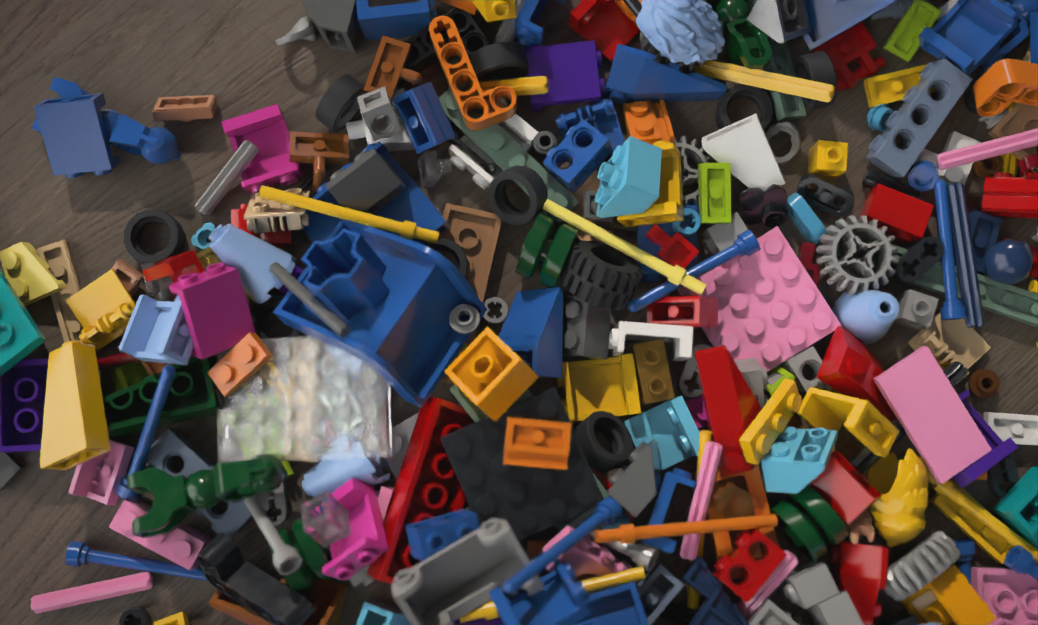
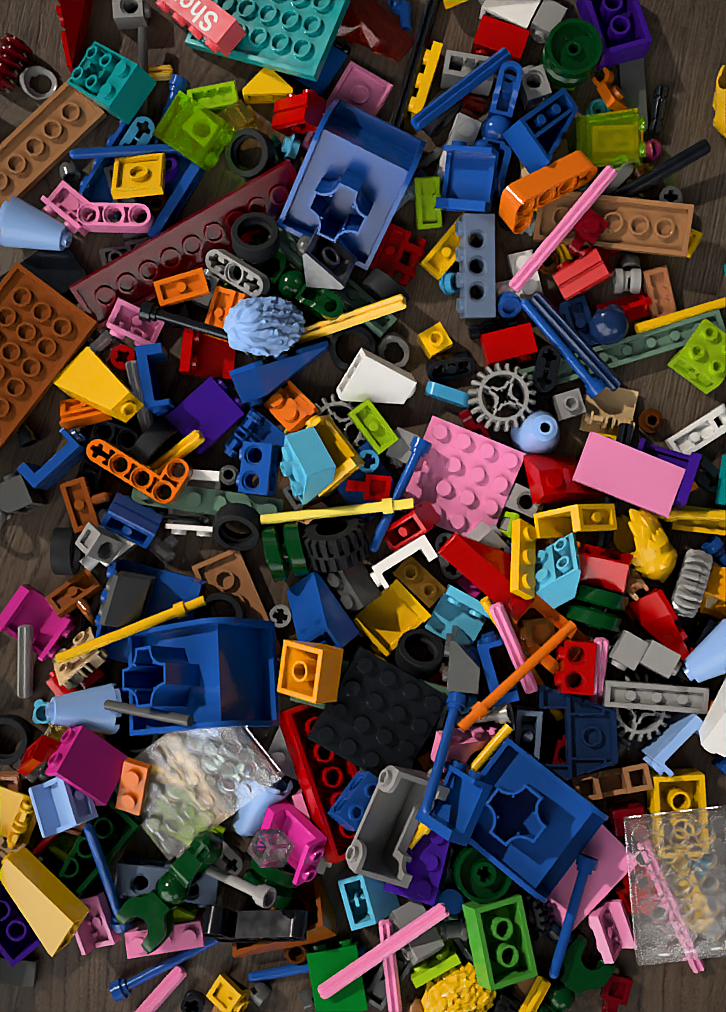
camera: 35 degrees left, 5 degrees up
(195, 525) = (185, 912): none -> slope
(464, 327) = (271, 645): light grey plate -> none
(537, 443) = (375, 695): orange plate -> none
(764, 206) = (414, 407): black plate -> none

